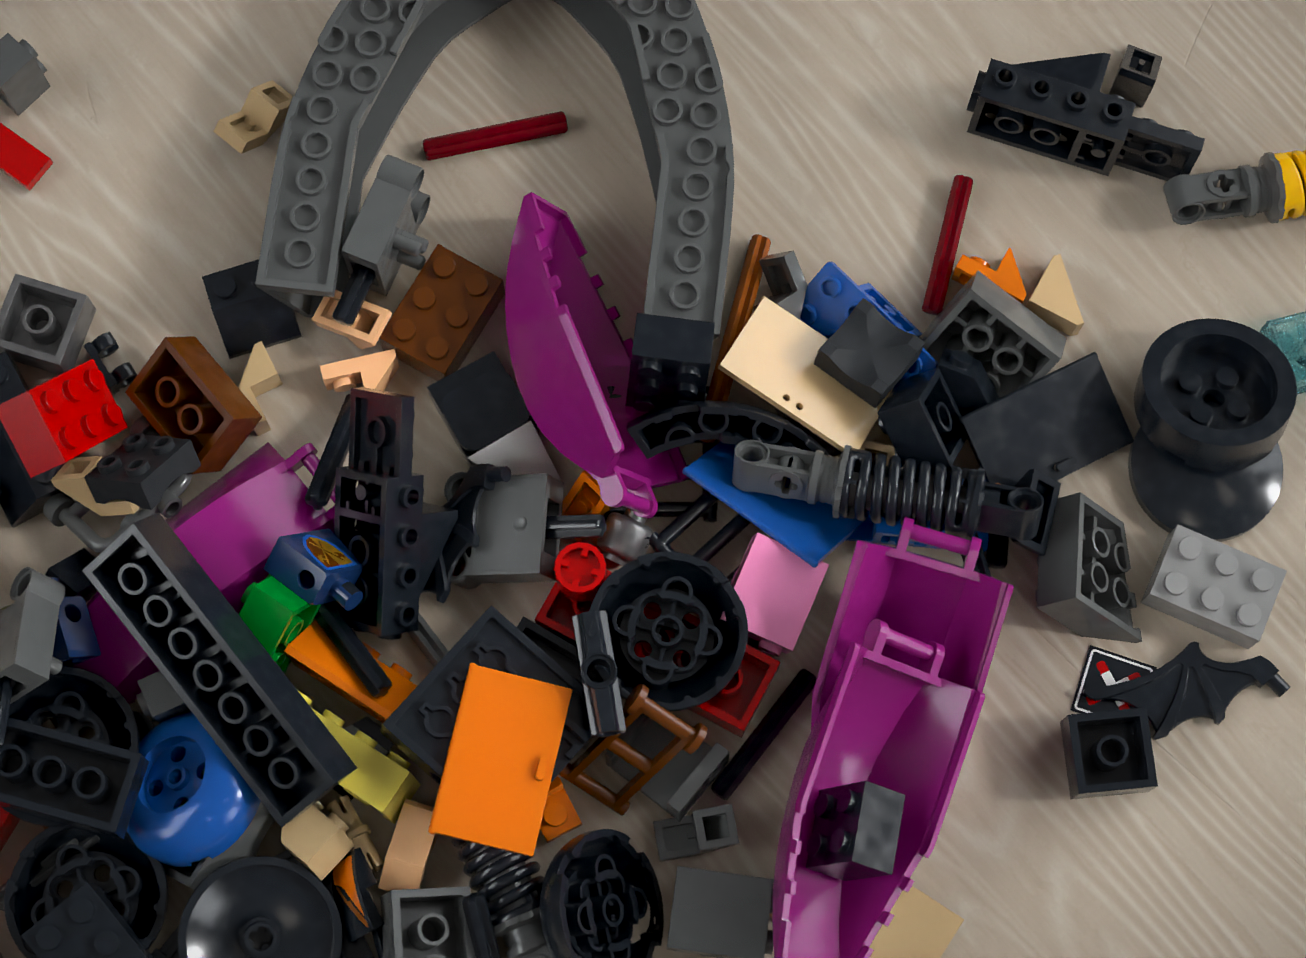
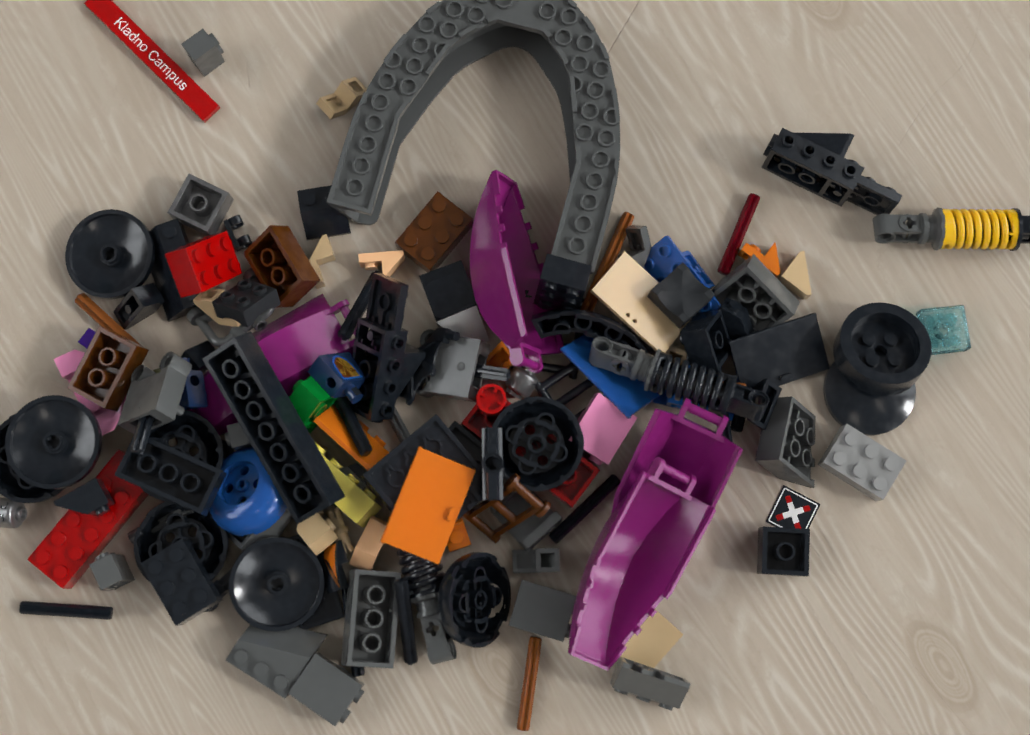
camera: 10 degrees right, 5 degrees up
(366, 327) = (381, 228): light nougat slope -> none
(384, 235) = (406, 182): dark grey piece -> none
(495, 135) = (481, 129): dark red axle -> none
(855, 831) = (627, 577): black brick -> none
(1136, 75) = (868, 147): black slope -> none
(1191, 688) = (838, 519): black animal -> none

